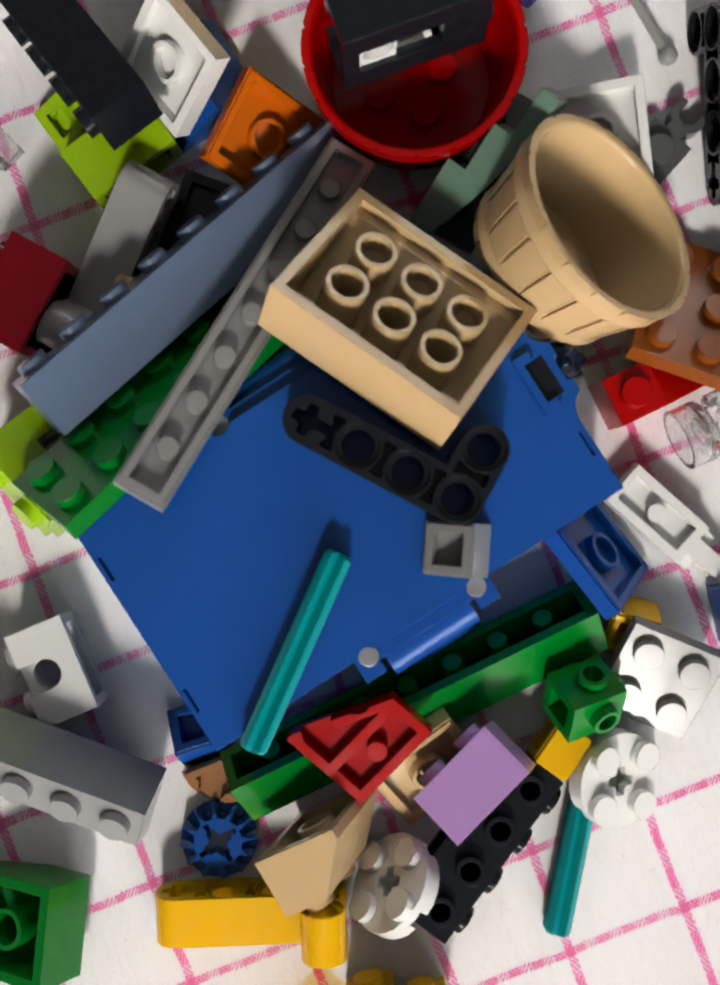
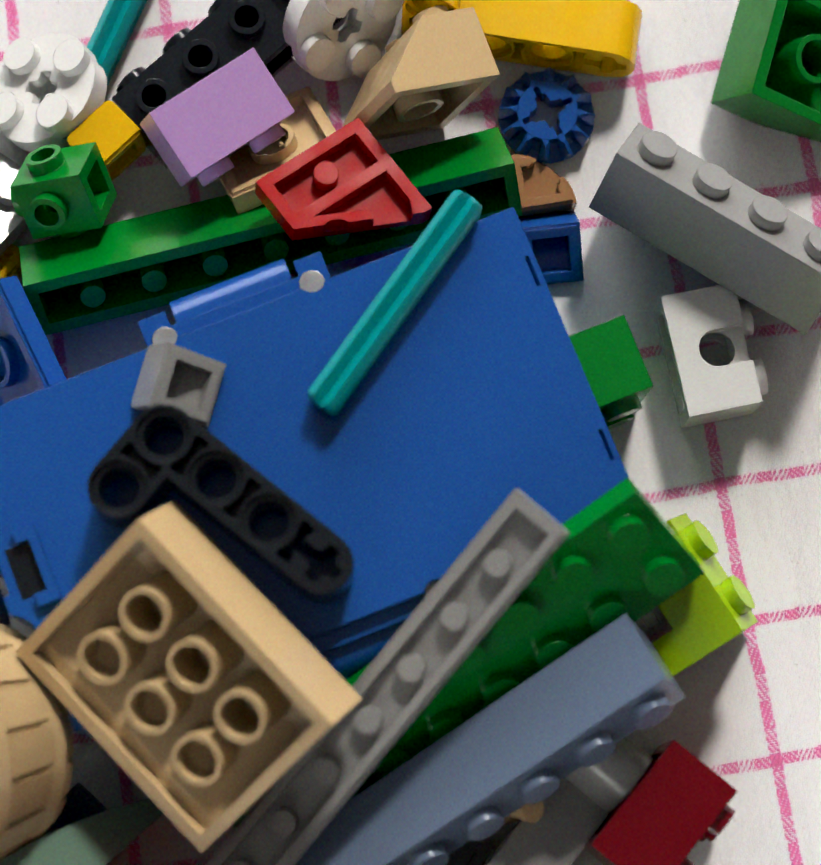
camera: 170 degrees left, 10 degrees down
(117, 640) = (613, 369): none -> green brick

